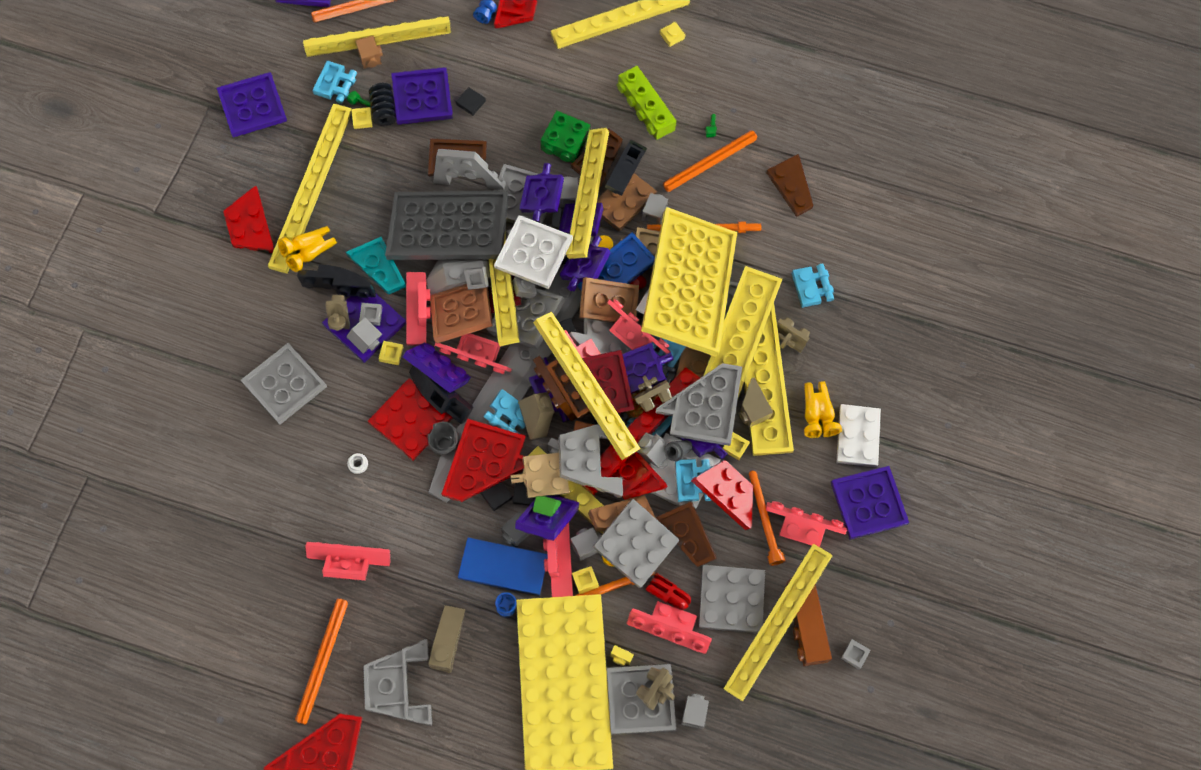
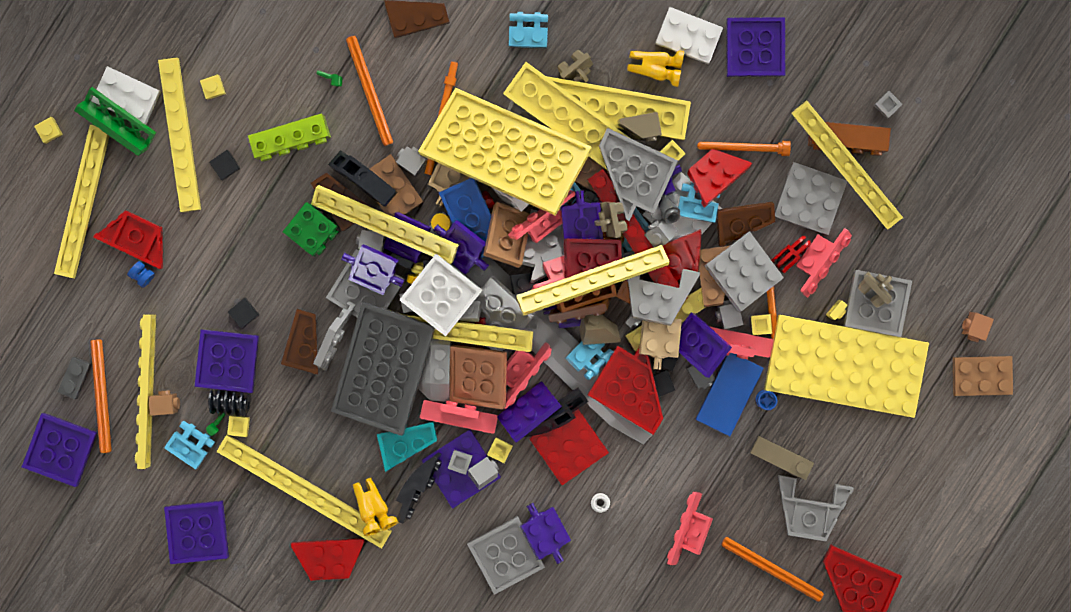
camera: 70 degrees left, 20 degrees up
(314, 415) = (545, 533): none -> dark purple plate
(337, 313) = (456, 494): dark tan hips -> none
(443, 438) = (600, 421): dark grey hair -> none
(476, 278) = (452, 355): light grey plate -> none
(546, 505) = (691, 343): bright green slope -> none
(604, 58) = (224, 165): none -> black piece
(695, 711) = (901, 260): light grey brick -> none
(802, 526) = (761, 114): coral bracket -> none

